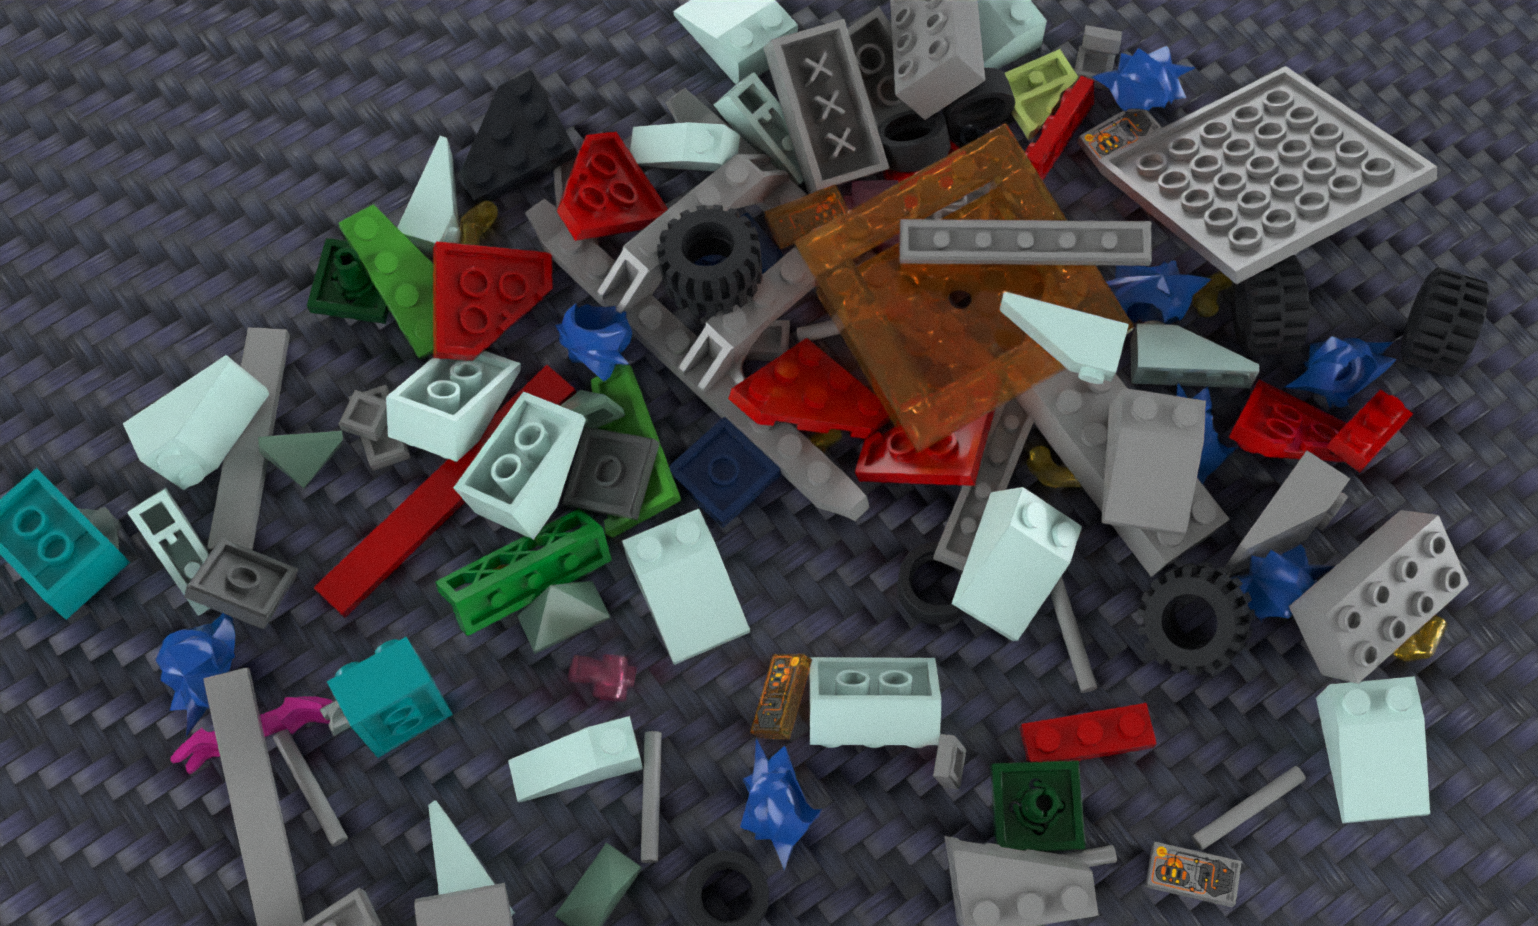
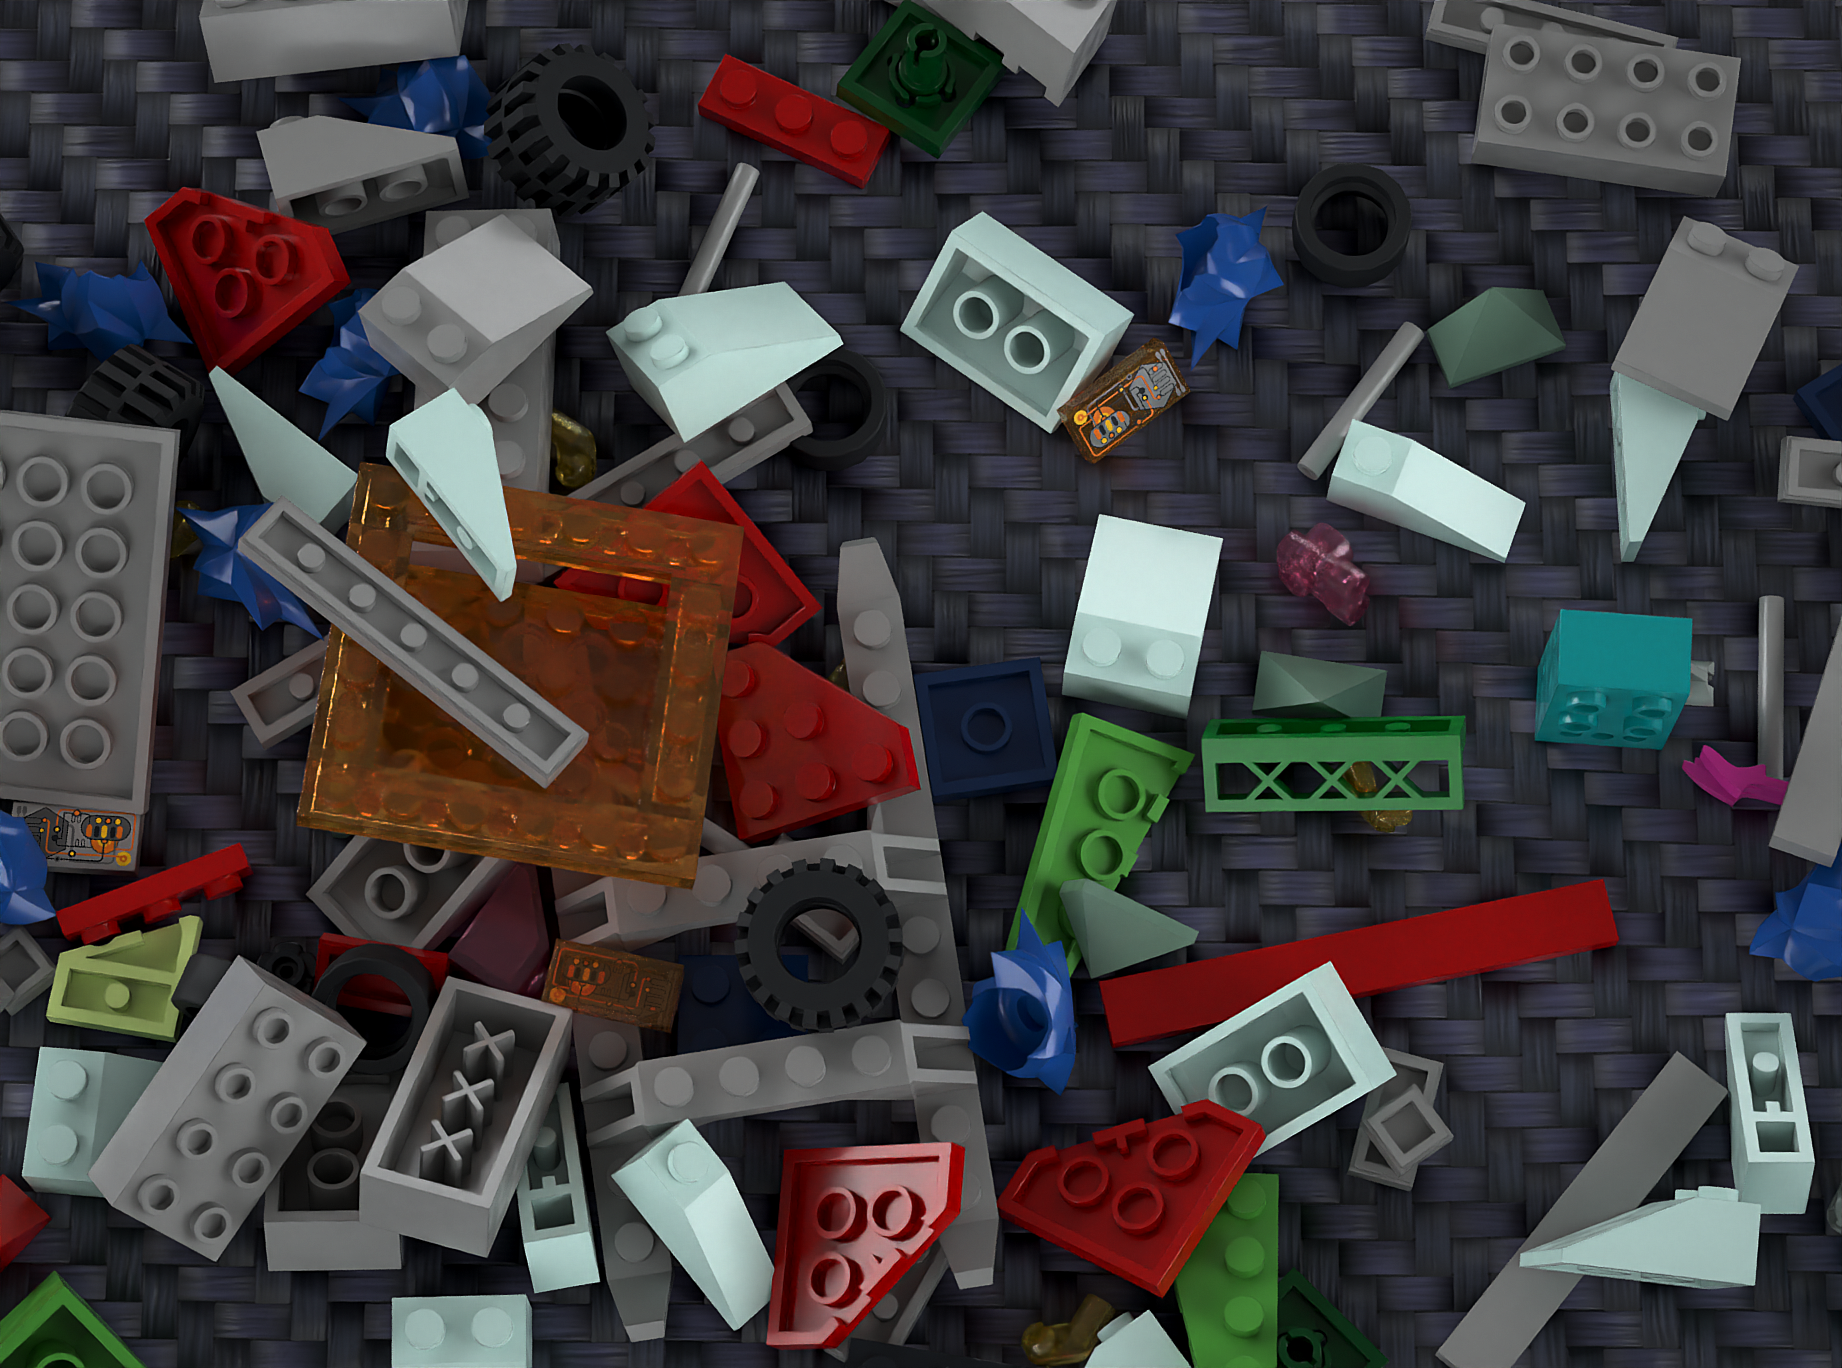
camera: 145 degrees left, 5 degrees up
(241, 583) = (1712, 987): dark grey tile -> none
(300, 454) = (1523, 1139): sand green slope -> none
(523, 465) = (1246, 888): light aqua slope -> none
(611, 473) = (1136, 815): dark grey tile -> none
(949, 762) = (983, 190): light grey tile -> none
(1370, 430) = (151, 204): red plate -> none

